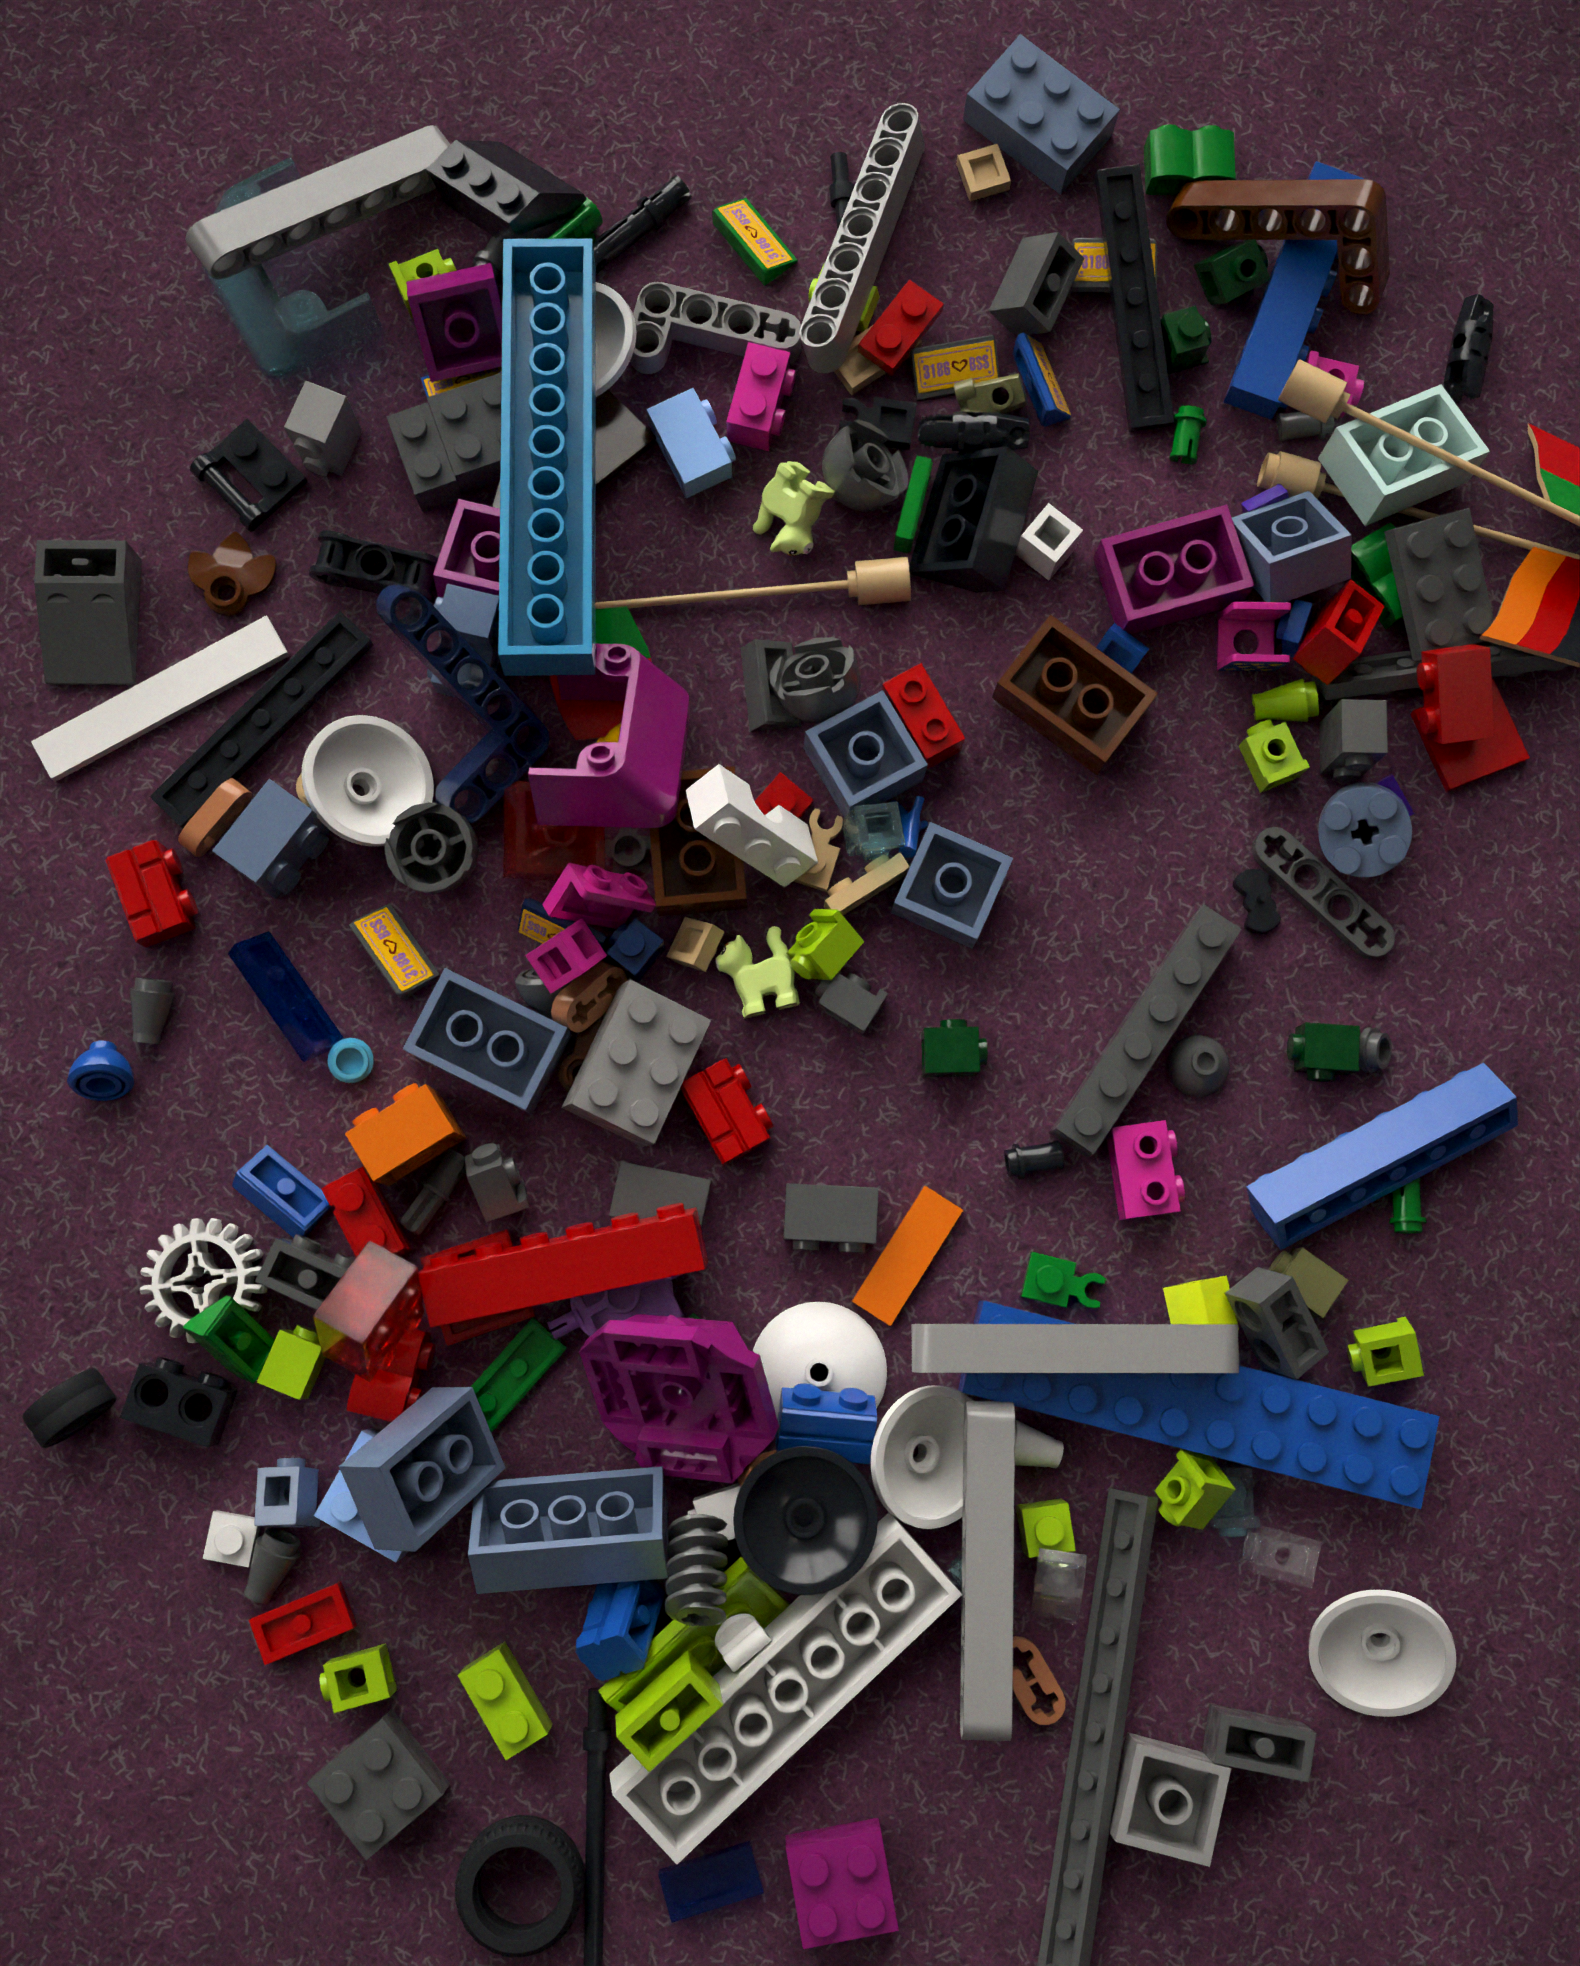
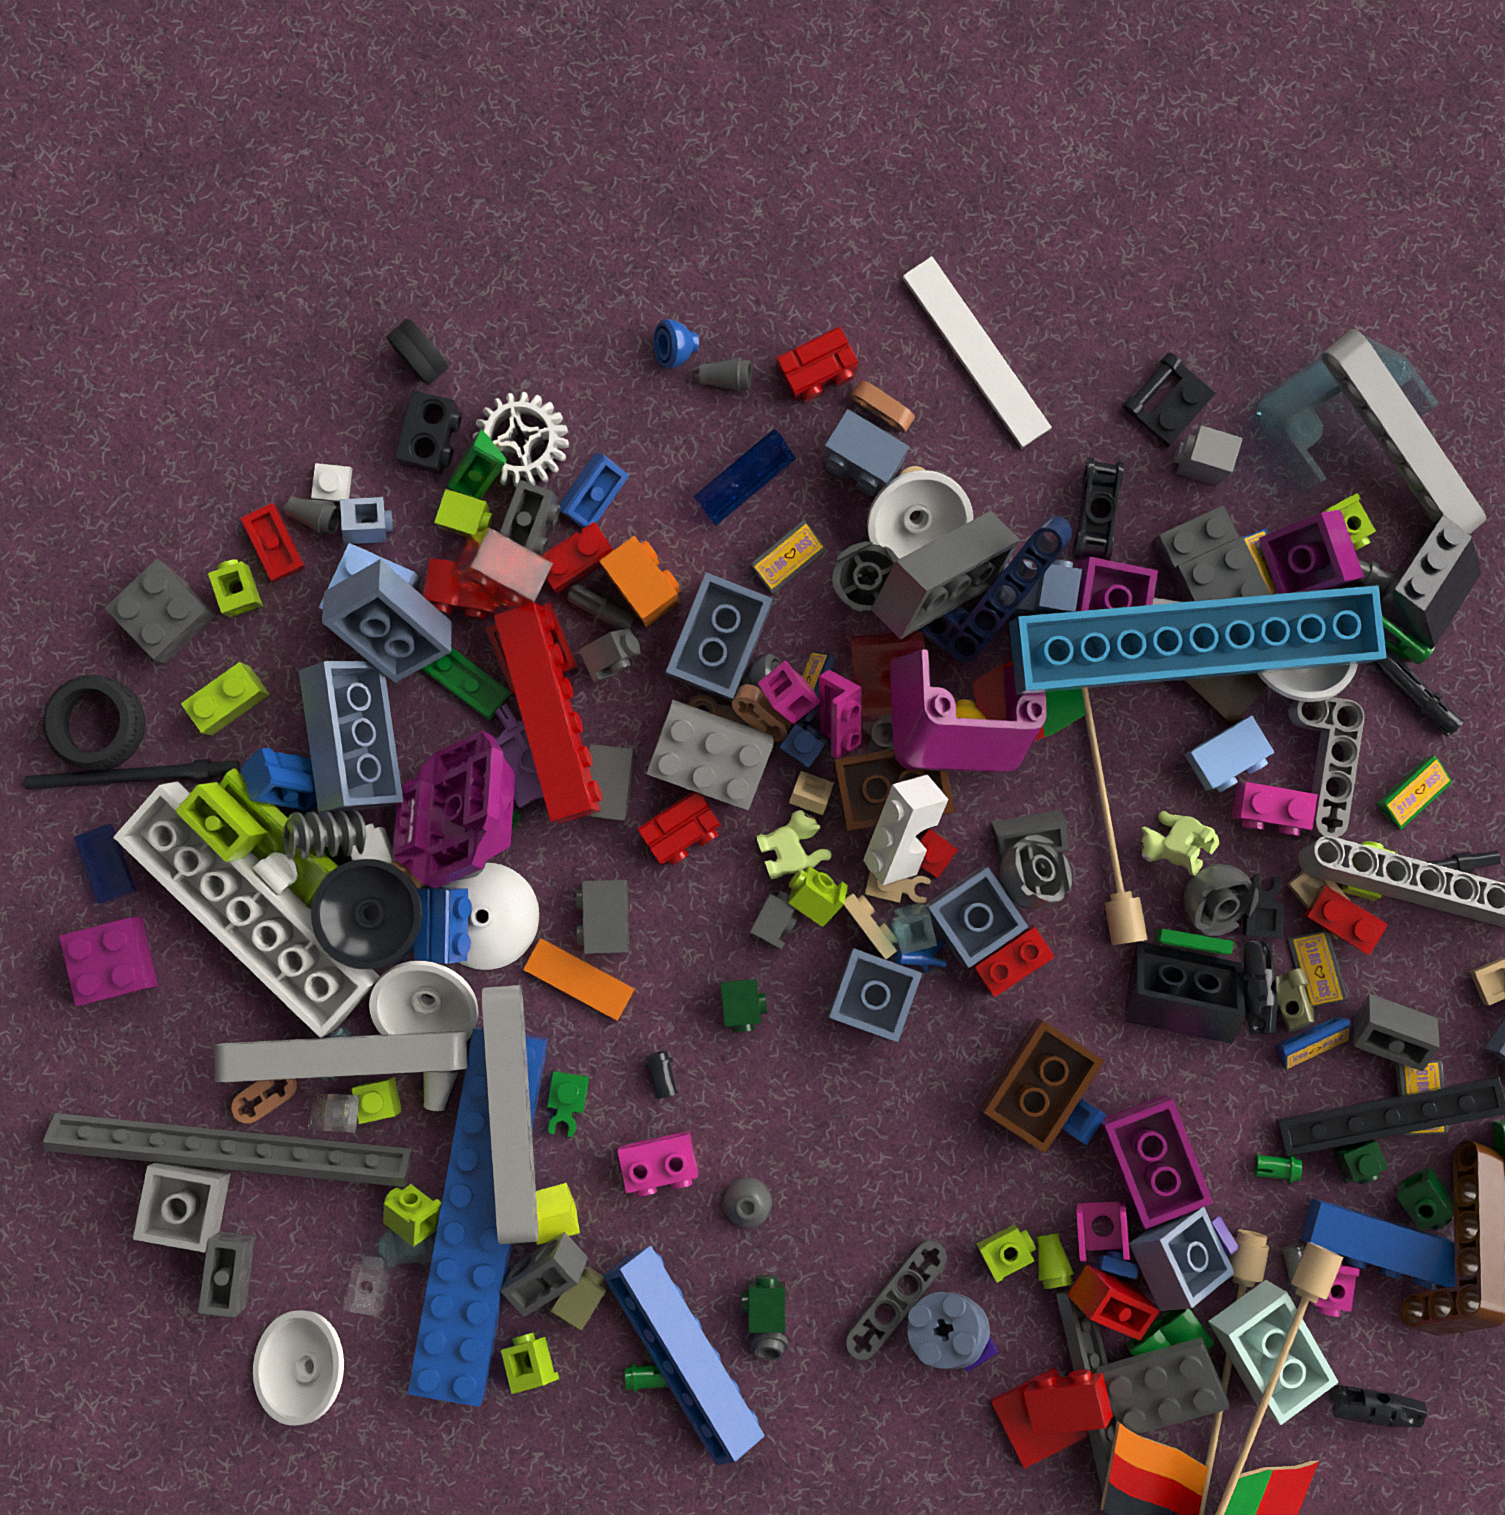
camera: 90 degrees right, 5 degrees up
(88, 611) = (1040, 287): dark grey slope -> none
(231, 568) = (1089, 395): reddish brown plate -> none
(263, 718) = (966, 434): black plate -> none
(350, 1060) = (699, 532): medium azure plate -> none
(436, 748) = (944, 574): none -> dark grey brick
(1048, 541) = (1170, 1056): white brick -> none
(1145, 1031) = (770, 1158): dark grey brick -> none
(1257, 901) = (885, 1245): black piece -> none
(1353, 738) = (1023, 1318): dark grey brick -> none

